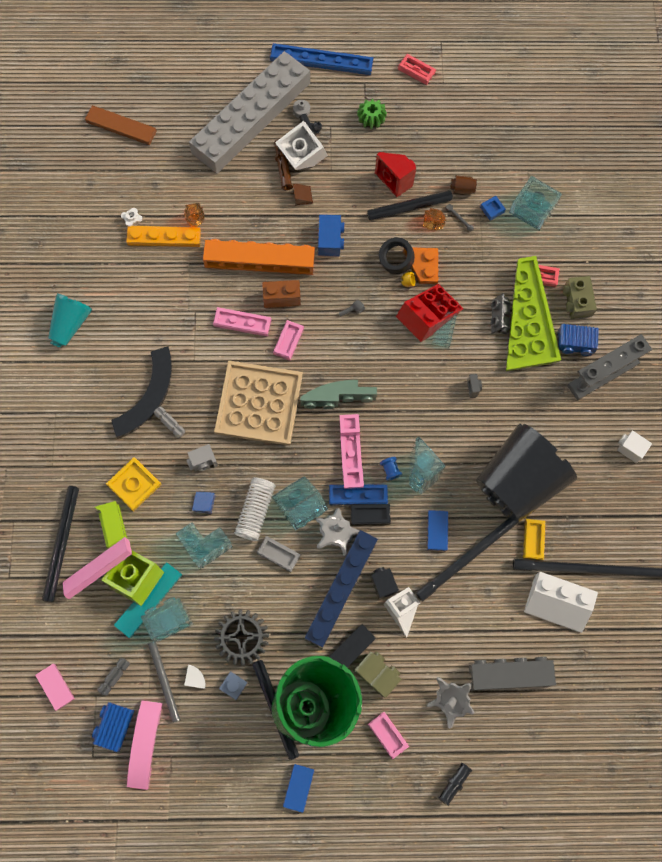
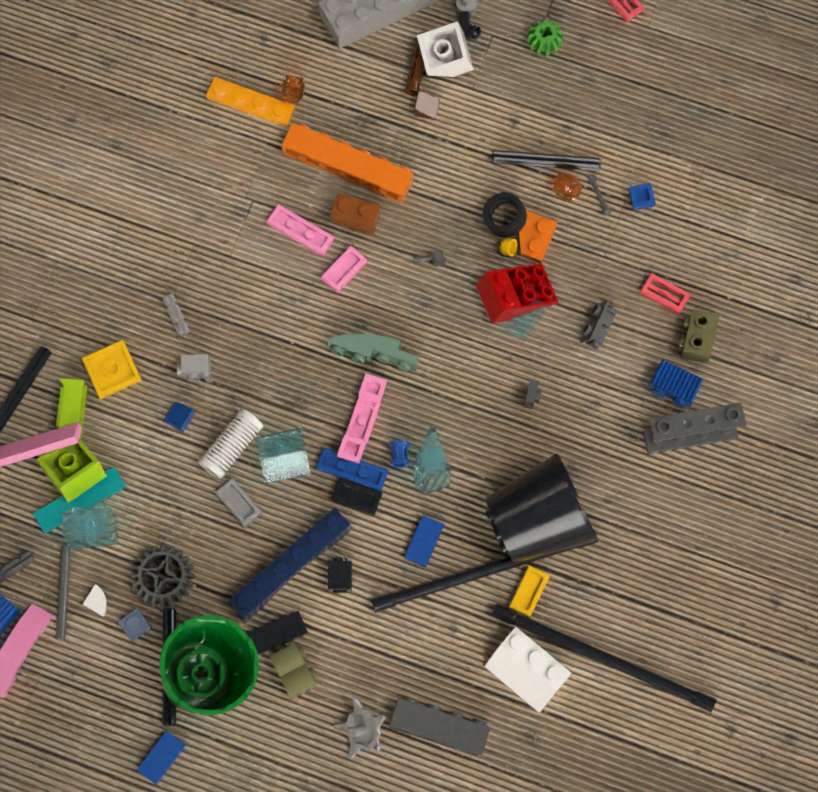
camera: 25 degrees right, 0 degrees up
(66, 319) = (106, 161): teal cone -> none
(135, 217) = (222, 73): white plate -> none
(151, 399) = (169, 280): black tile -> none
(203, 549) = (160, 467): clear light blue brick -> none
(259, 403) = (282, 328): tan plate -> none
(330, 235) = (438, 164): blue brick -> none
(336, 531) = (309, 499): light grey piece -> none
(388, 735) = (279, 740): bright pink tile -> none
(395, 172) = (543, 117): red slope -> none
(403, 609) = (350, 611): white slope -> none
(463, 185) = (618, 157): reddish brown brick -> none
(531, 328) = (626, 353): lime wing -> none
(535, 203) = (692, 208): clear light blue brick -> none
(633, 446) = (687, 528): white brick -> none

